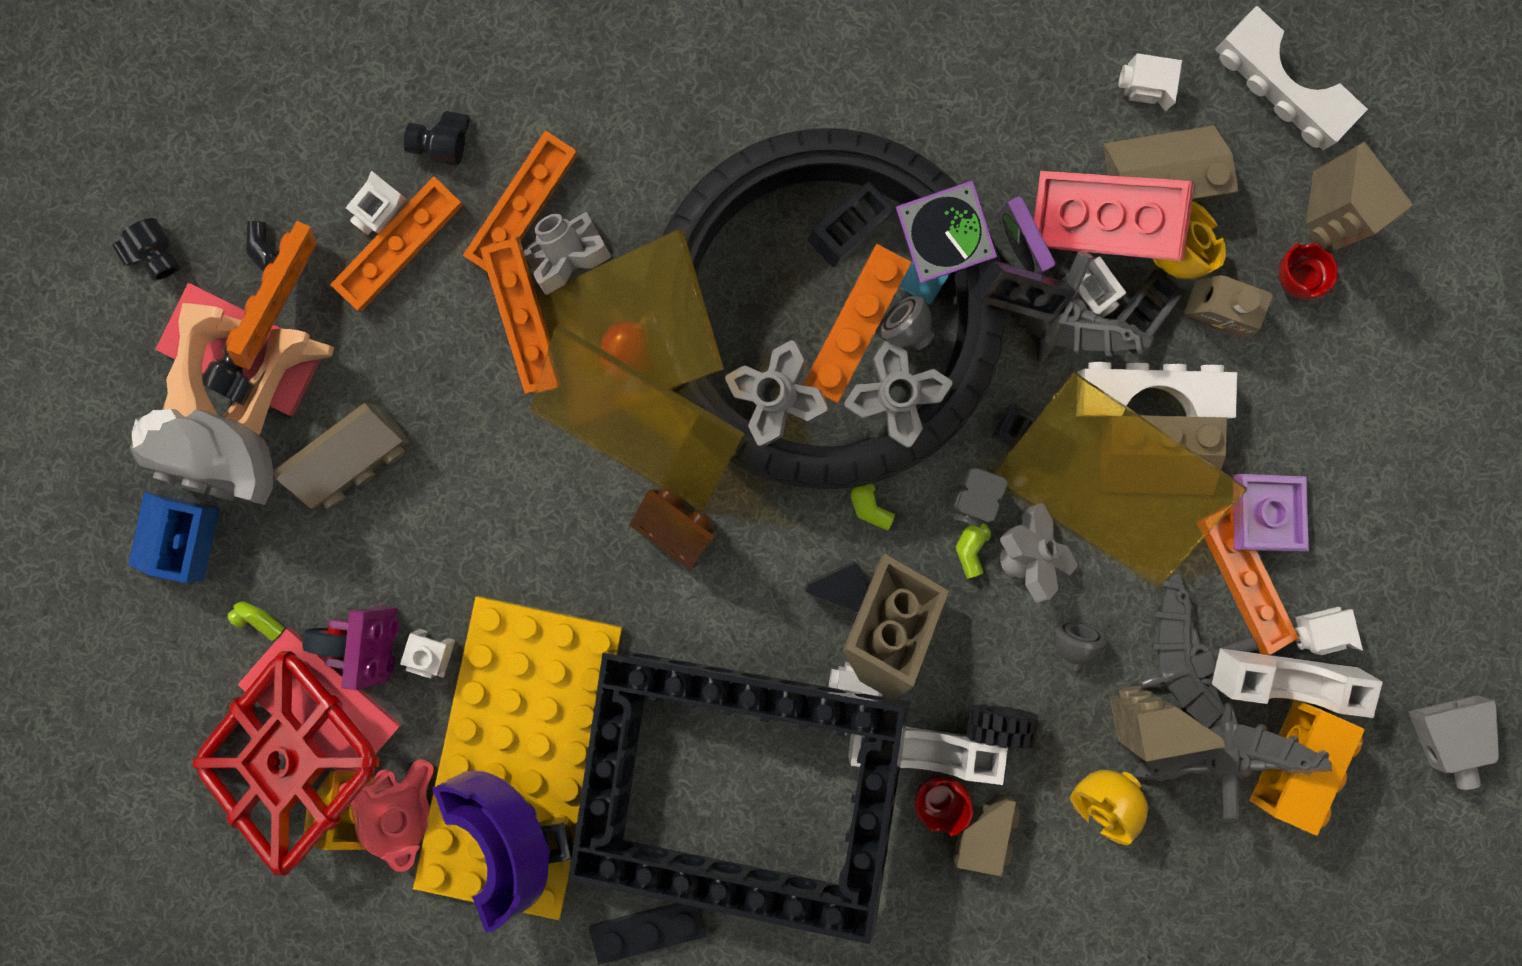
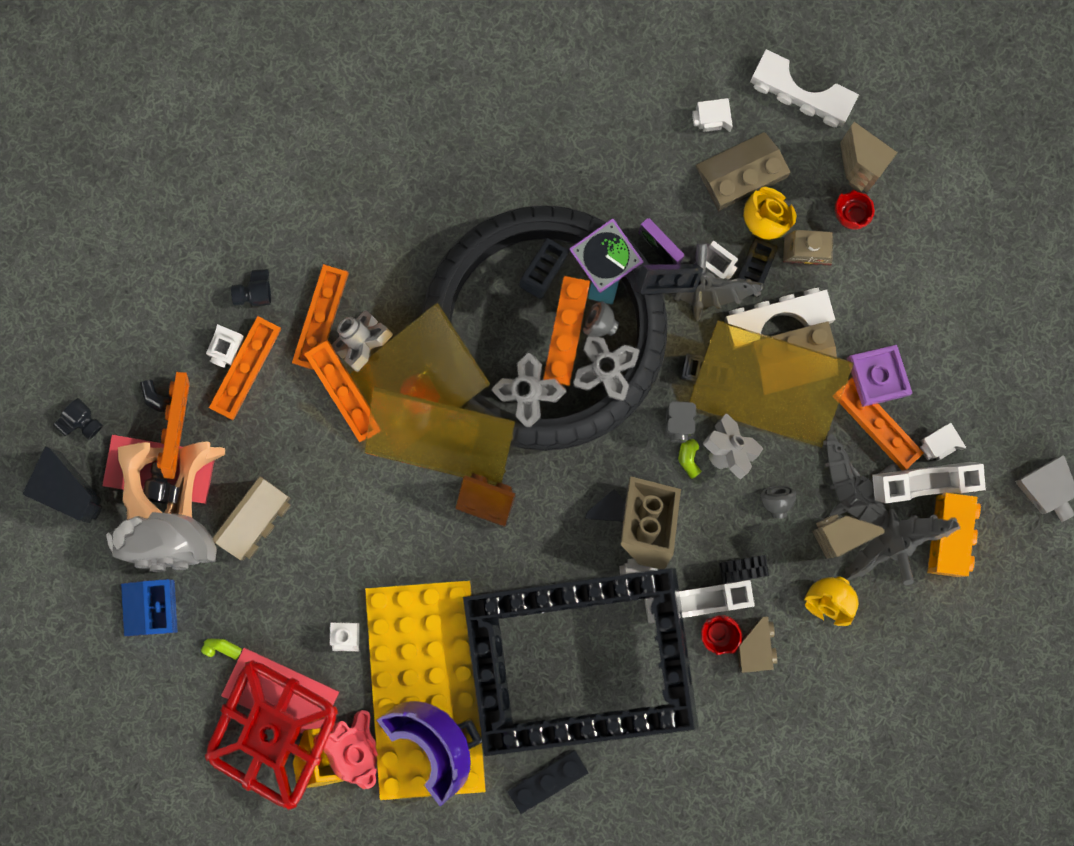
camera: 15 degrees left, 5 degrees down
(93, 335) = (62, 487): none -> black slope
(358, 645) = (303, 641): magenta plate -> none
(867, 509) = (610, 450): lime arm -> none
(1114, 214) = (713, 211): coral tile -> none

